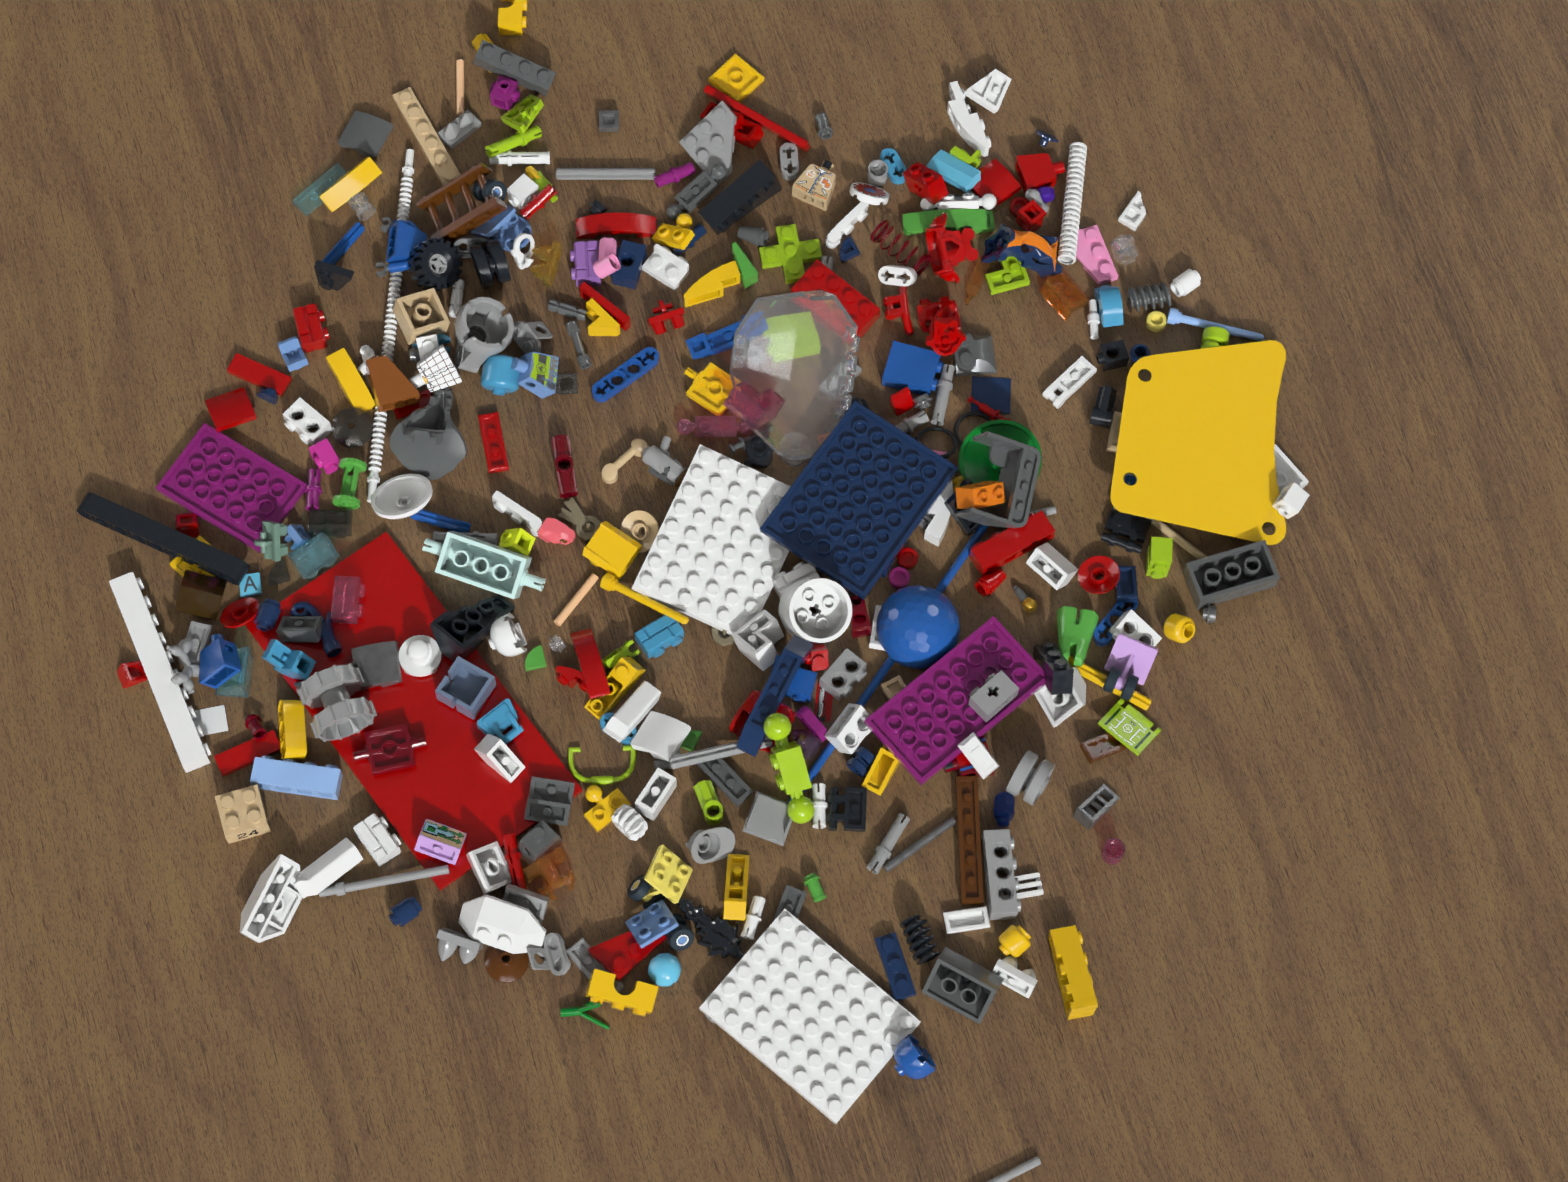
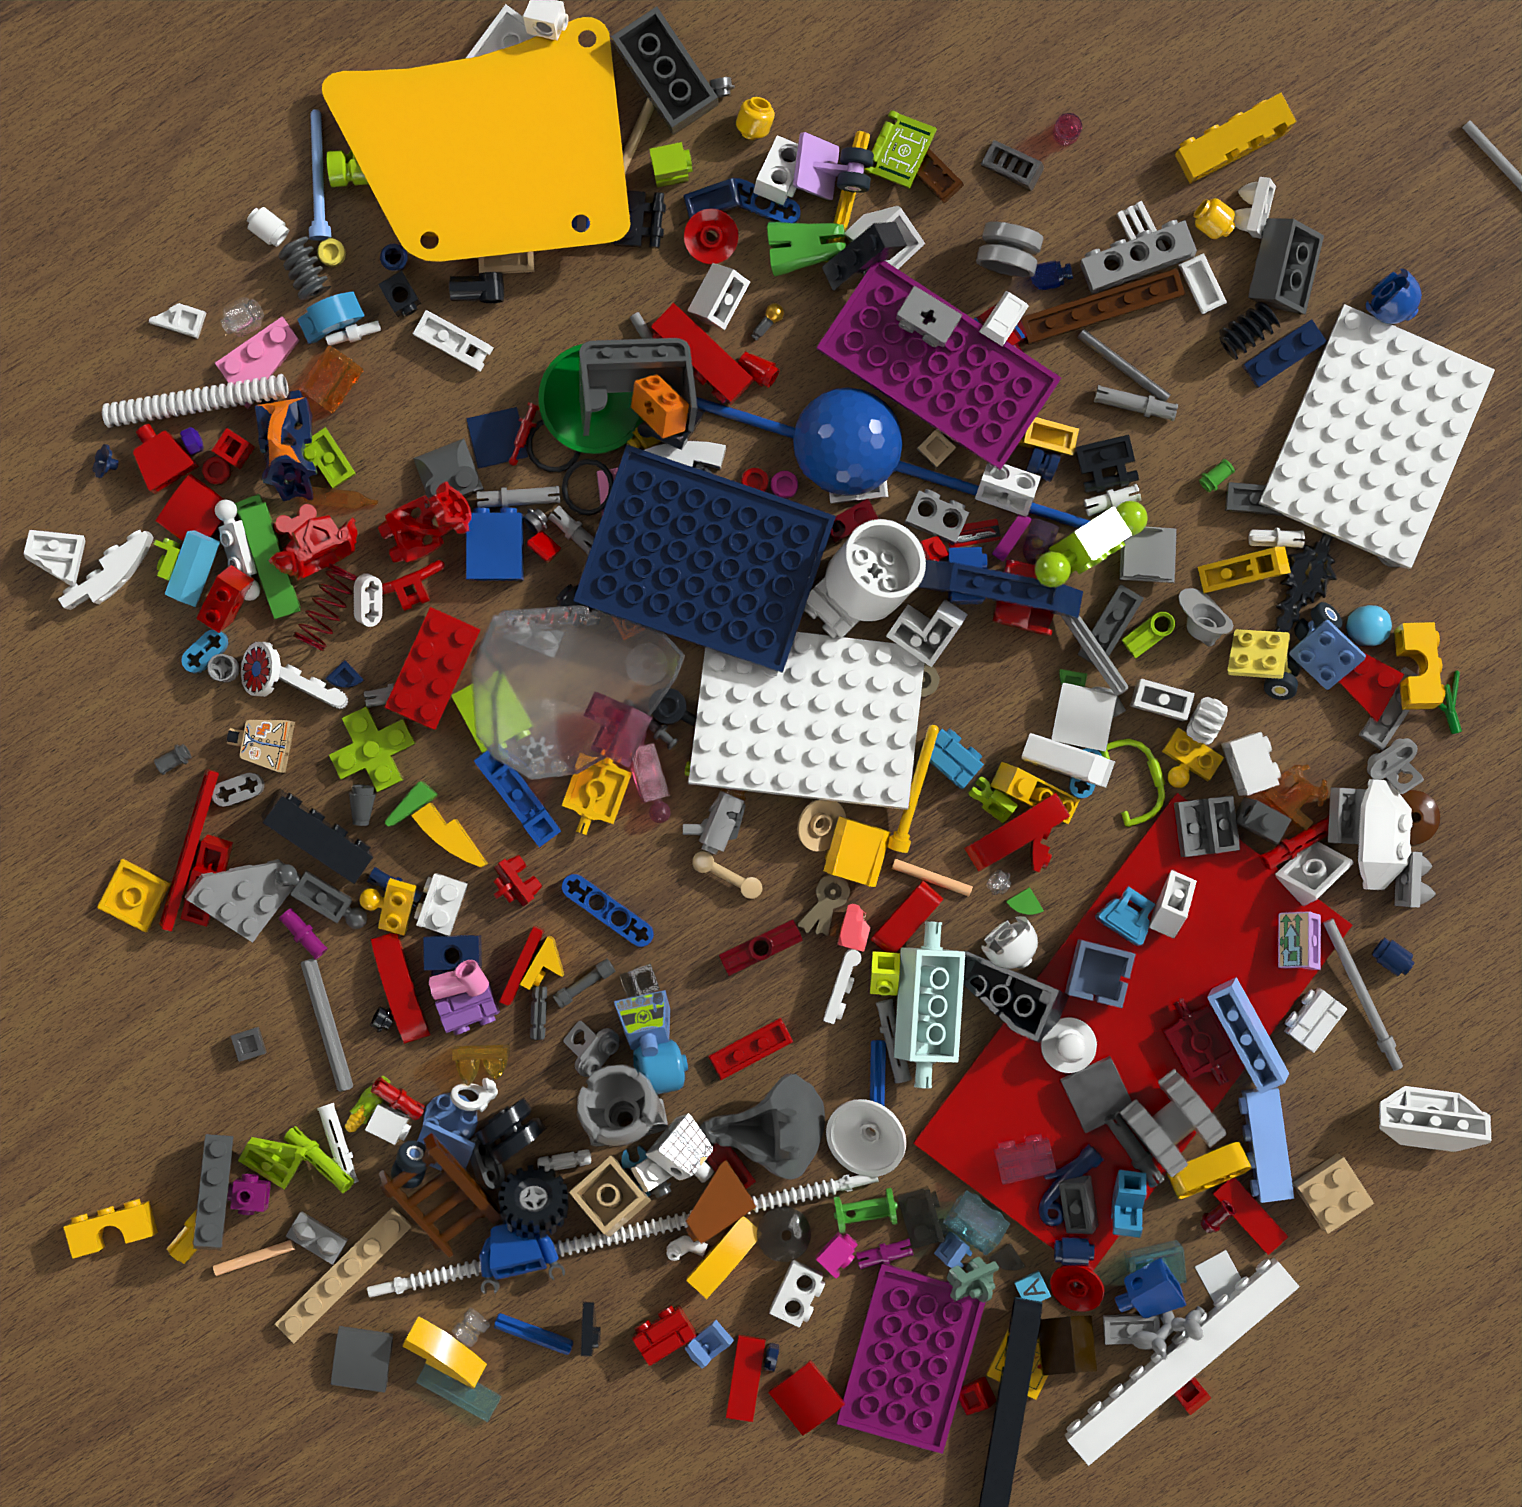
camera: 100 degrees left, 20 degrees up
(328, 868) = (1369, 1065): white piece -> none
(382, 780) = (1248, 1035): none -> light blue brick
(551, 569) = (907, 918): none -> red beam
(586, 843) = (1251, 763): none -> white brick
(1033, 194) = (203, 450): light grey arm -> none

